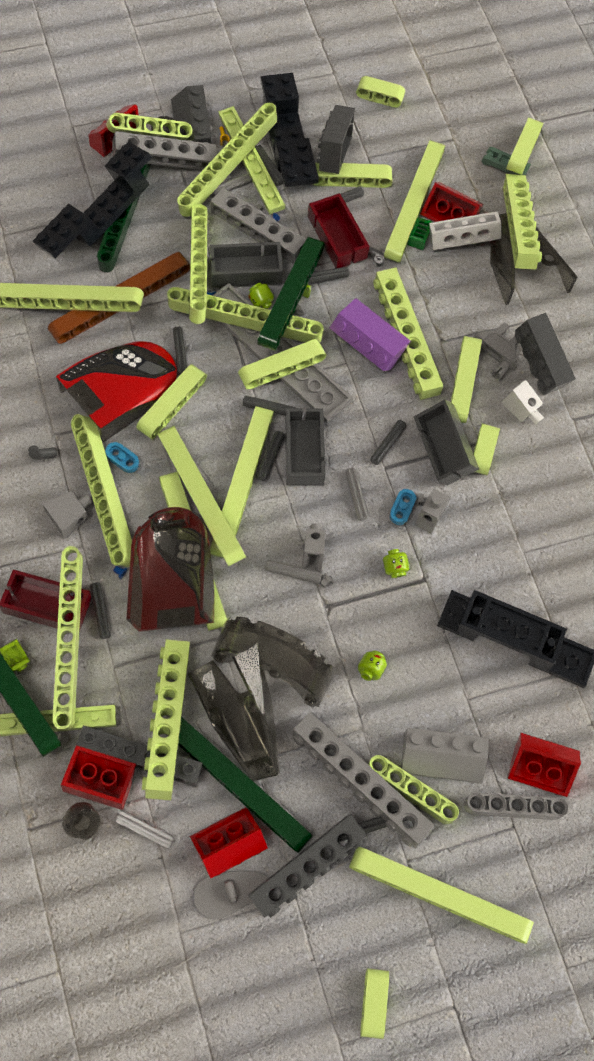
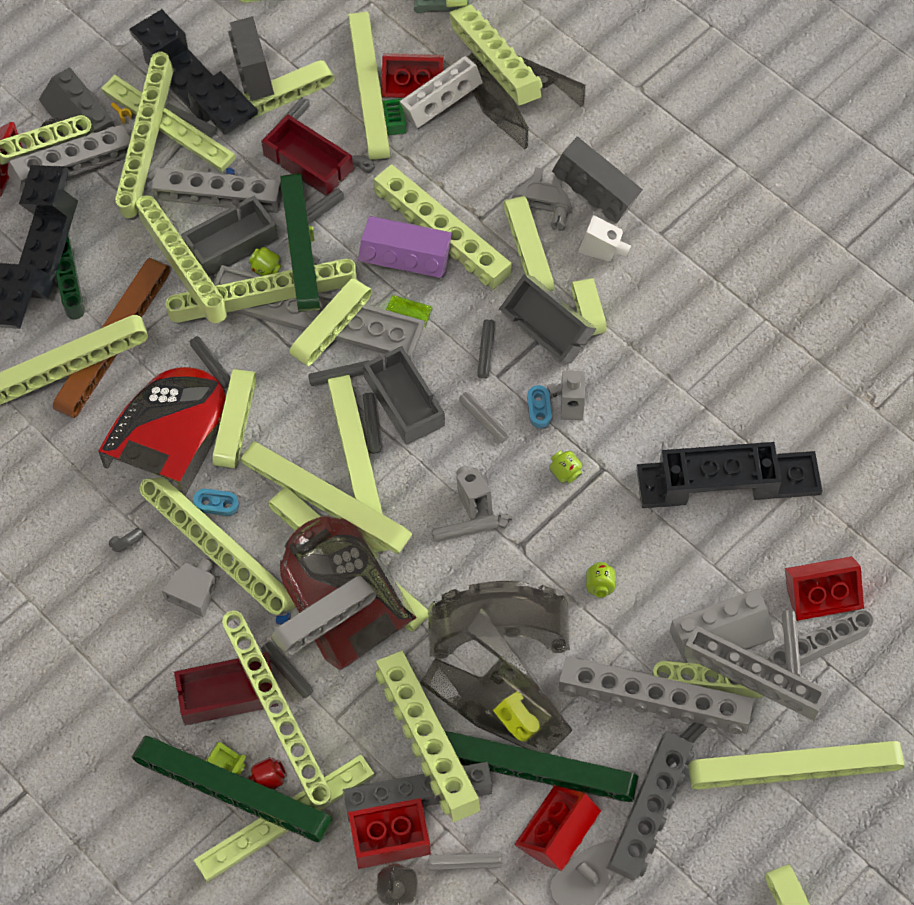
camera: 20 degrees left, 5 degrees down
(38, 683) = (268, 773): none -> red head
(143, 585) = (323, 615): none -> light grey beam
(245, 740) = (516, 717): none -> neon yellow leg
(348, 383) = (409, 308): none -> clear neon green tile
(447, 806) = (755, 673): none -> light grey brick
(489, 797) = (791, 642): none -> light grey axle

